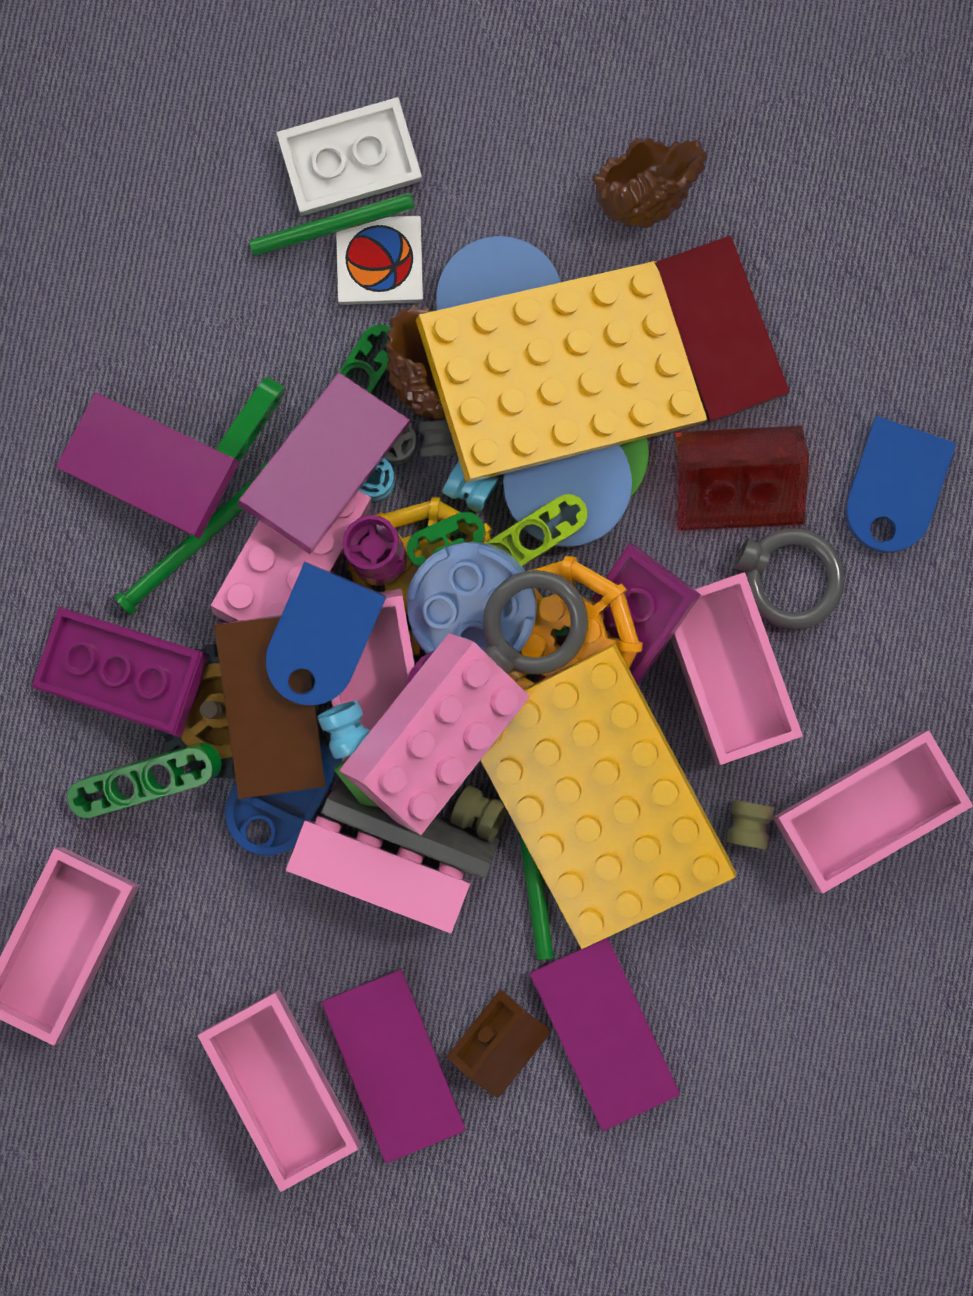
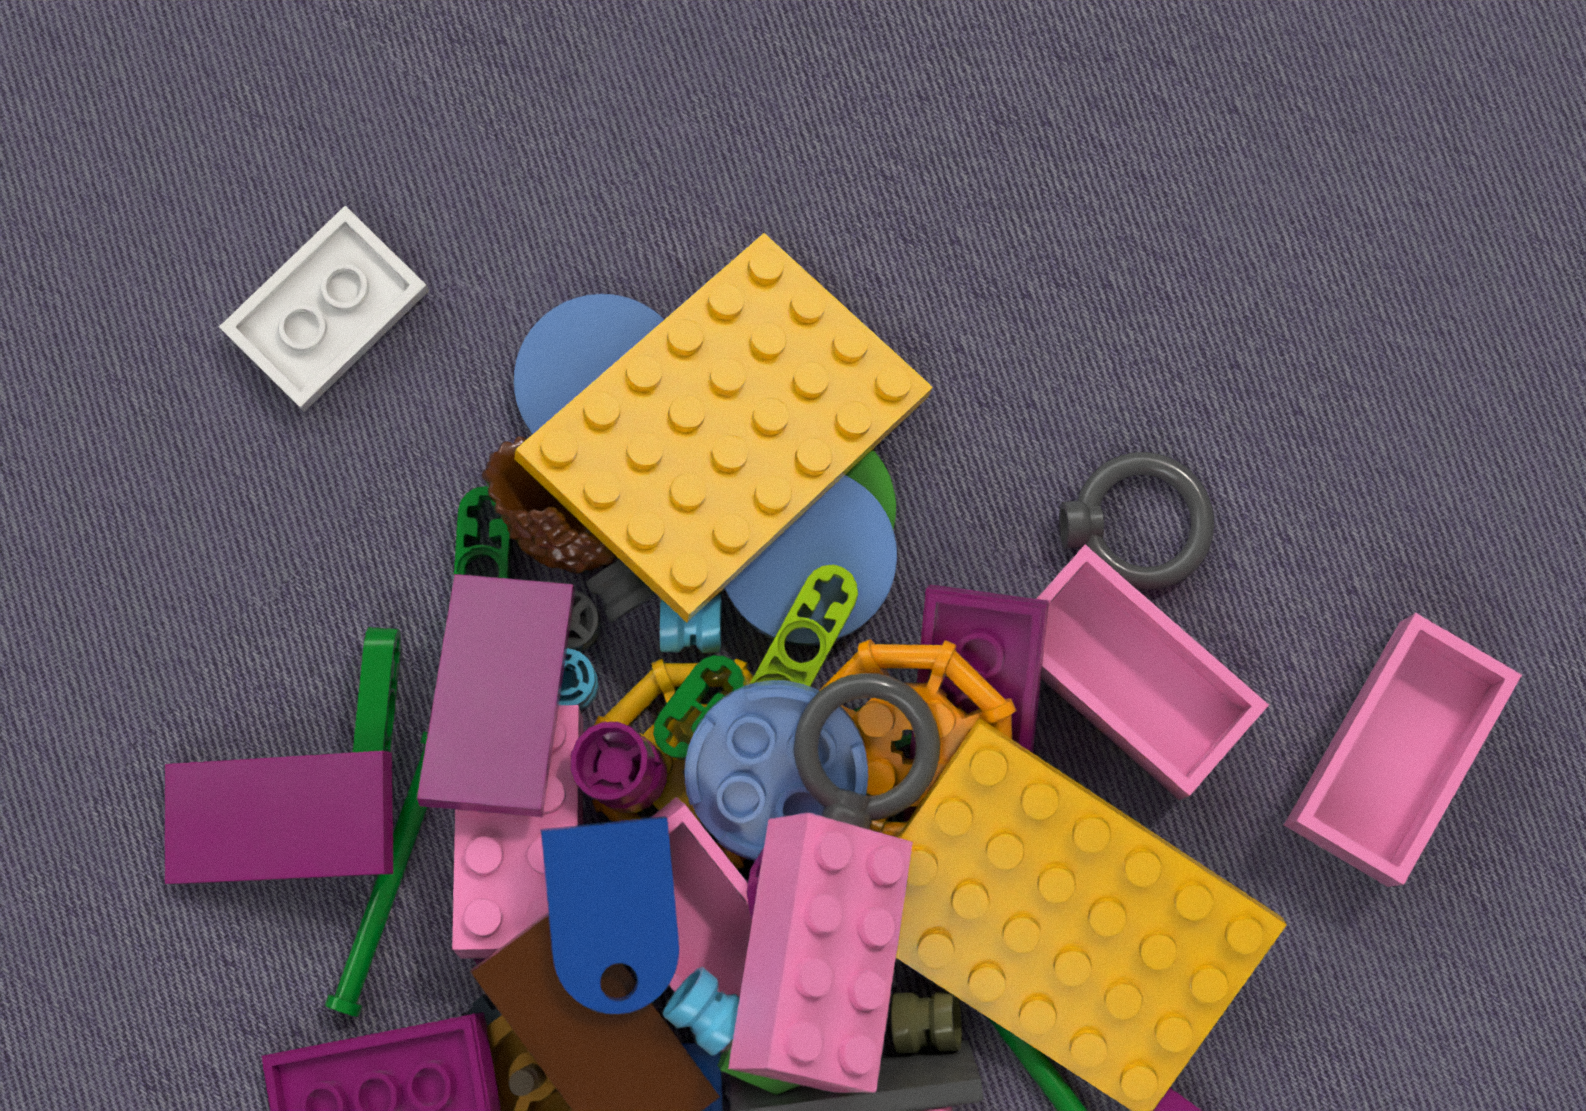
camera: 25 degrees left, 5 degrees down
(332, 224) = (348, 400): green bar -> none
(380, 262) = (429, 413): tile -> none
(648, 181) = (703, 141): reddish brown piece -> none
(721, 329) = (889, 271): dark red tile -> none
(740, 477) = (1012, 434): clear red slope -> none
(750, 824) = (1263, 849): olive wheel -> none
(897, 482) = (1200, 337): blue tile -> none

